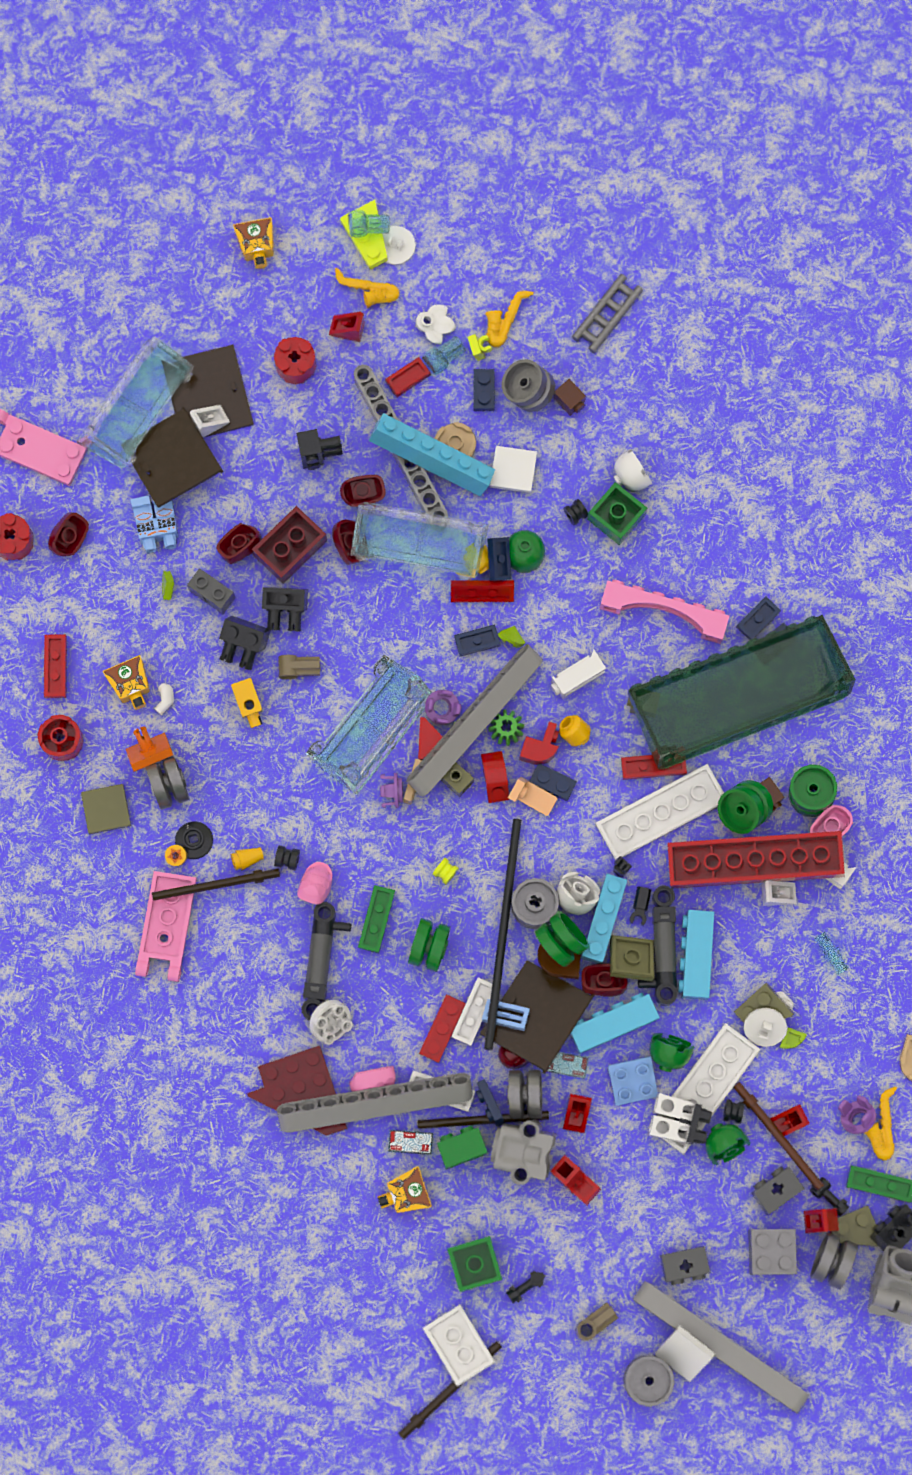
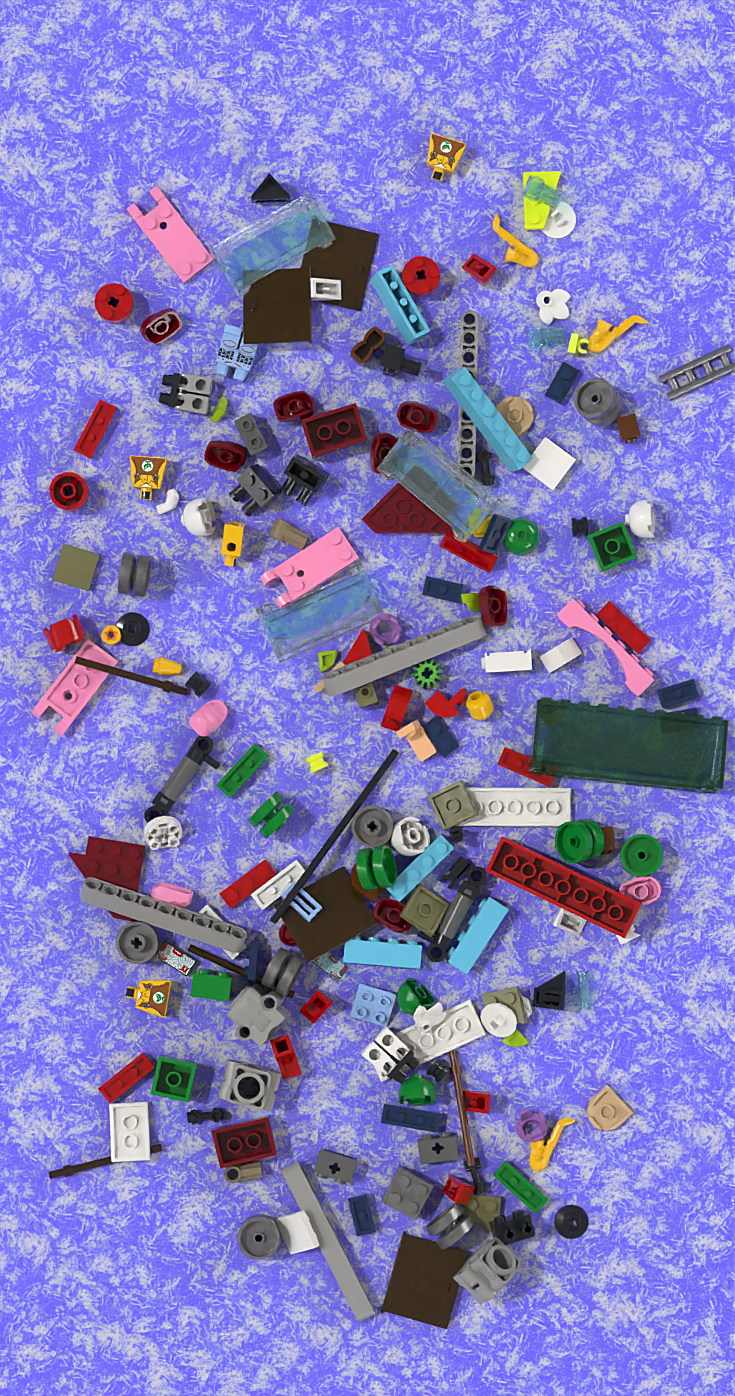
camera: 35 degrees right, 10 degrees up
(108, 356) = (270, 191): none -> black slope
(127, 876) = (64, 633): none -> red brick
(128, 584) = (181, 388): none -> light grey hips
(148, 749) = (133, 540): orange tile -> none
(196, 623) = (225, 455): none -> dark red piece
(201, 695) = (198, 517): none -> white cylinder
(278, 452) = (372, 342): none -> reddish brown brick
(289, 396) = (400, 305): none -> medium azure brick
(341, 677) = (317, 561): none -> bright pink hinge
(363, 1132) = (126, 942): none -> flat silver wheel
(392, 790) = (308, 675): medium lavender piece -> none
(400, 587) = (403, 513): none -> dark red wing
(401, 766) = (326, 659): none -> lime tile
(408, 377) = (506, 338): red tile -> none
(425, 1291) = (126, 1077): none -> red plate
(447, 496) = (487, 478): none -> black bar
(533, 1222) = (268, 1080): none -> light grey piece
(534, 629) = (493, 606): none -> dark red piece
(580, 1289) = (244, 1141): none -> dark red brick
(602, 841) = (452, 805): none -> olive tile
(625, 643) = (560, 655): none -> white slope
(671, 584) = (623, 627): none -> red plate
(694, 1063) = (426, 1018): none -> white plate
(733, 1174) = (410, 1118): none -> dark blue plate
(739, 1300) = (361, 1214): none -> dark blue plate
(802, 973) = (551, 993): none -> black slope
(837, 1336) = (423, 1281): none -> dark brown piece

